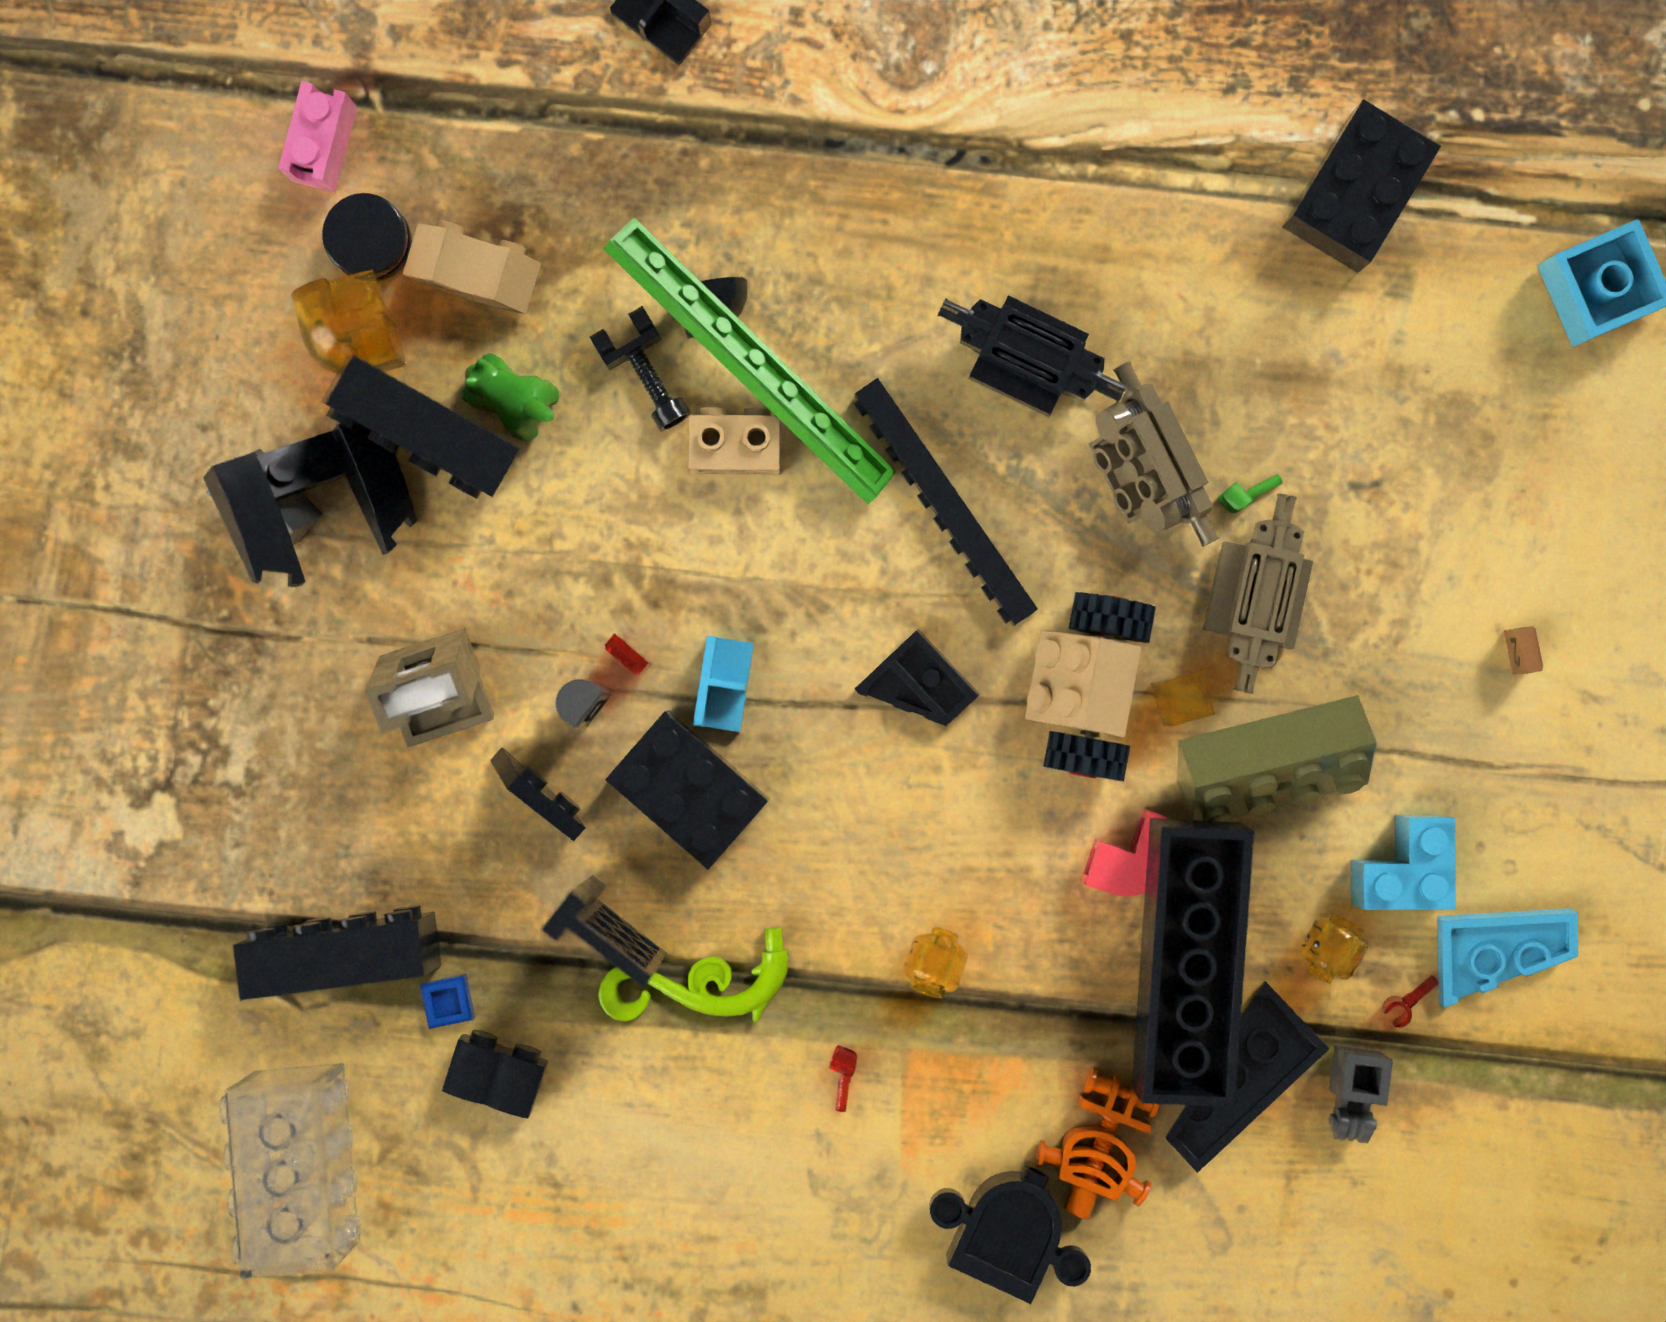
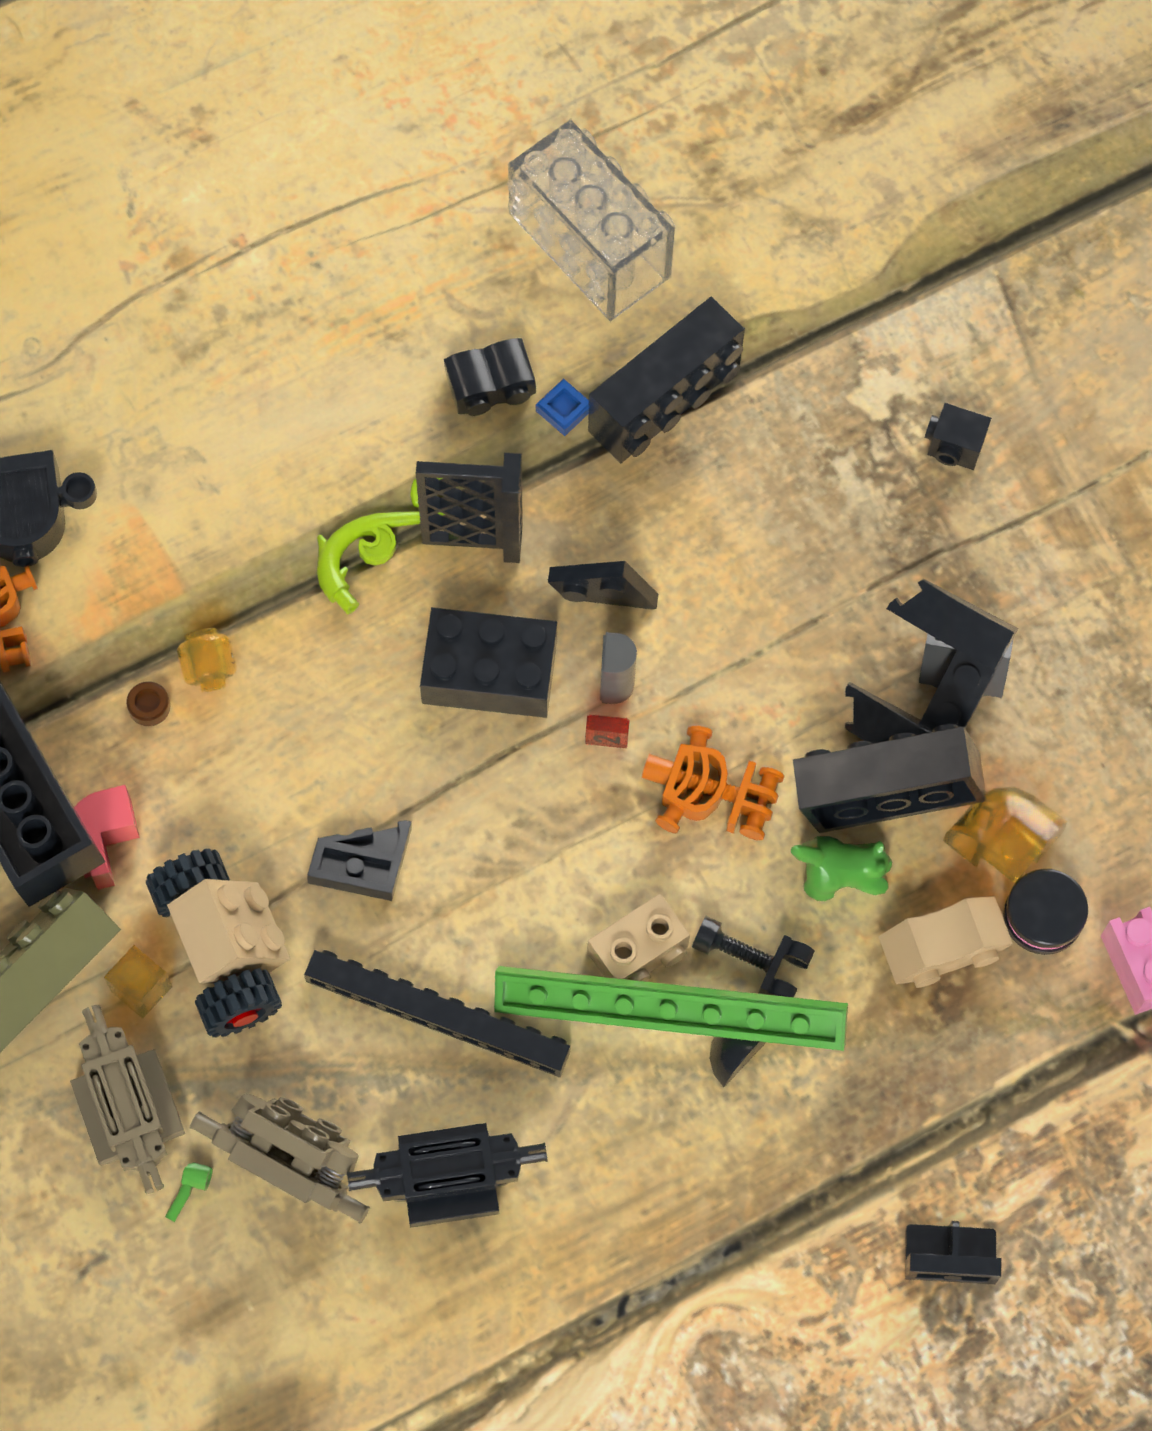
camera: 140 degrees right, 20 degrees down
(111, 723) = (957, 436): none -> black brick
(429, 689) = (742, 602): dark tan brick -> none
(597, 579) = (672, 774): none -> orange piece
(723, 684) = (519, 759): medium azure panel -> none
(843, 1062) = (229, 548): clear red hand -> none
(1010, 959) = (148, 703): none -> reddish brown tile

